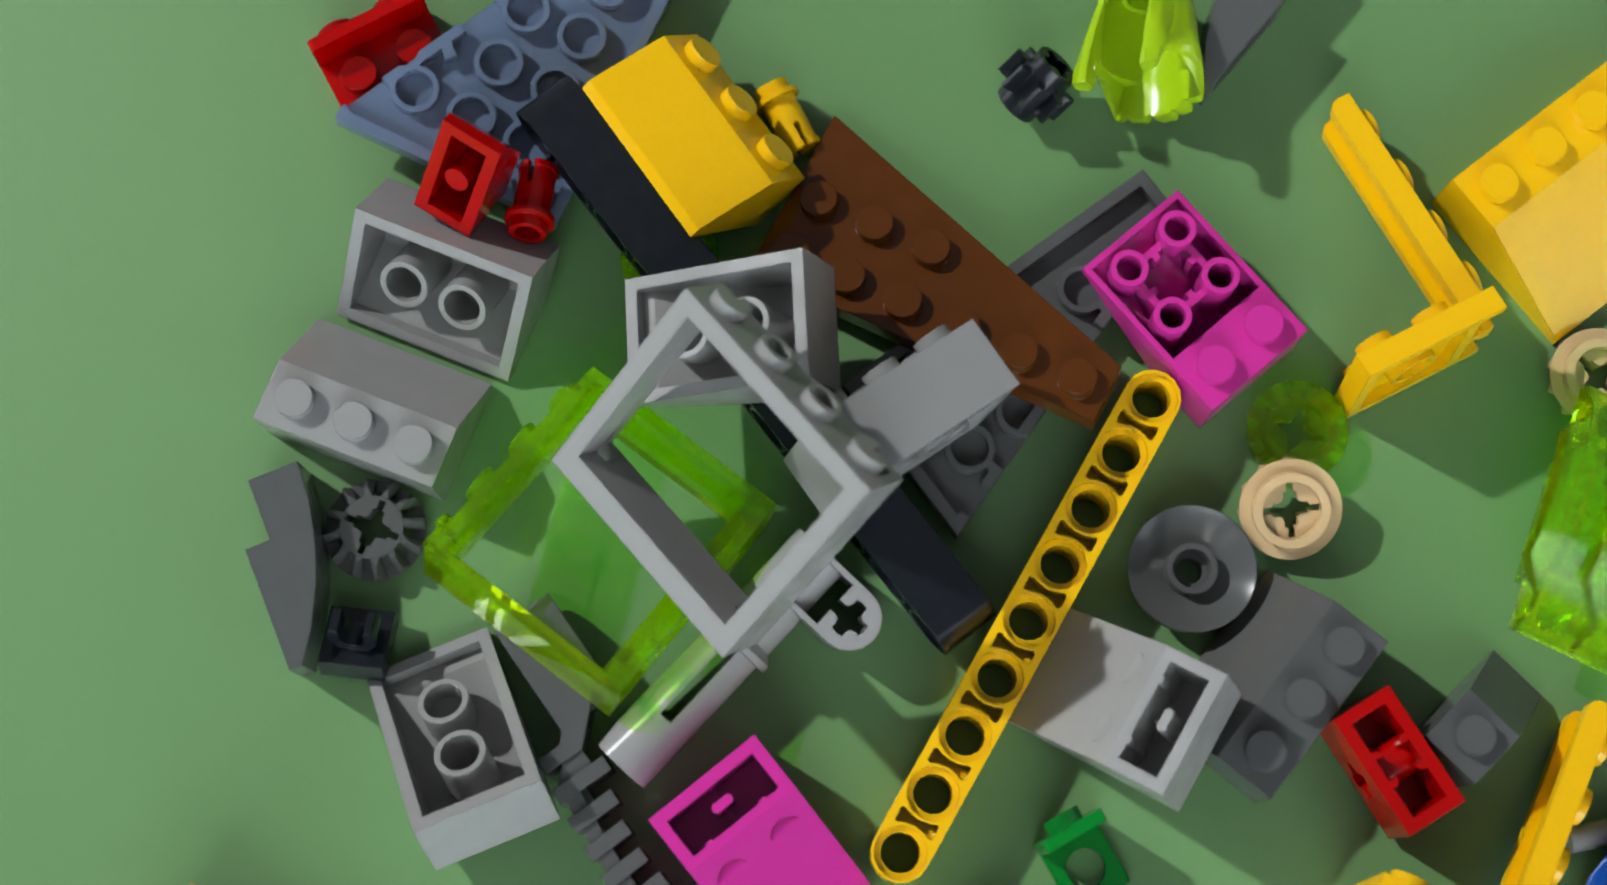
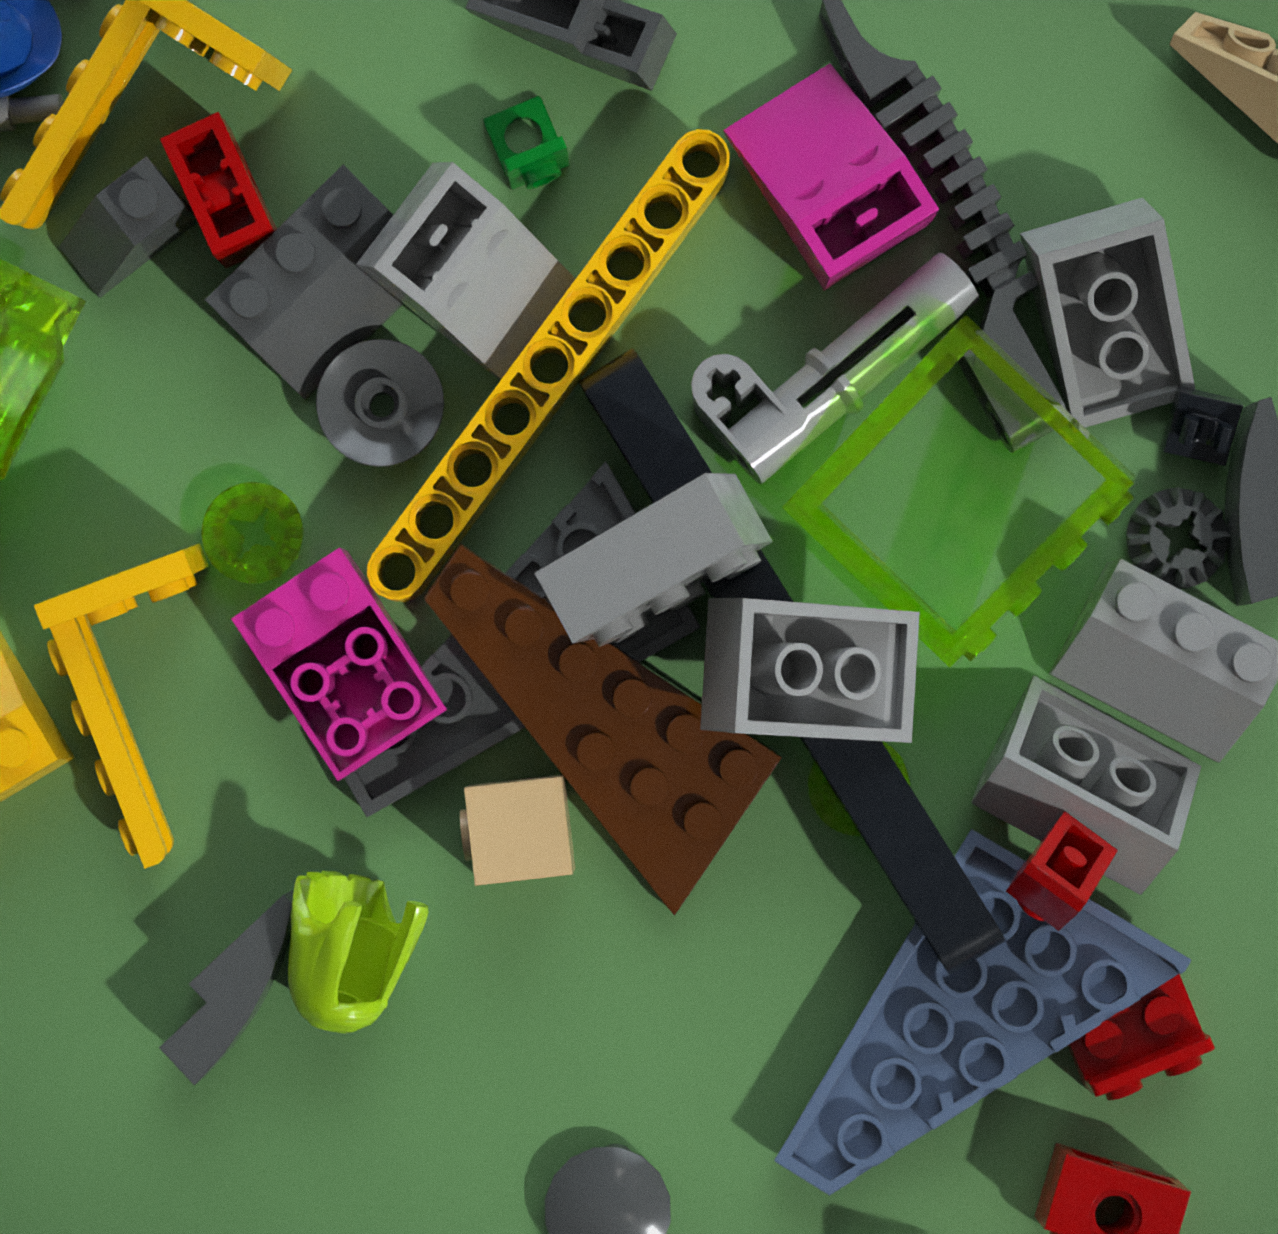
camera: 170 degrees left, 10 degrees up
(530, 214) = (995, 844): red pin -> none
(655, 532) = (903, 473): light grey window -> none
(695, 135) = (825, 898): yellow slope -> none
(785, 115) = (724, 919): yellow pin -> none
(995, 170) = (517, 830): none -> tan head
(1036, 84) = (463, 921): black gear -> none
(1311, 527) = (254, 433): tan gear -> none

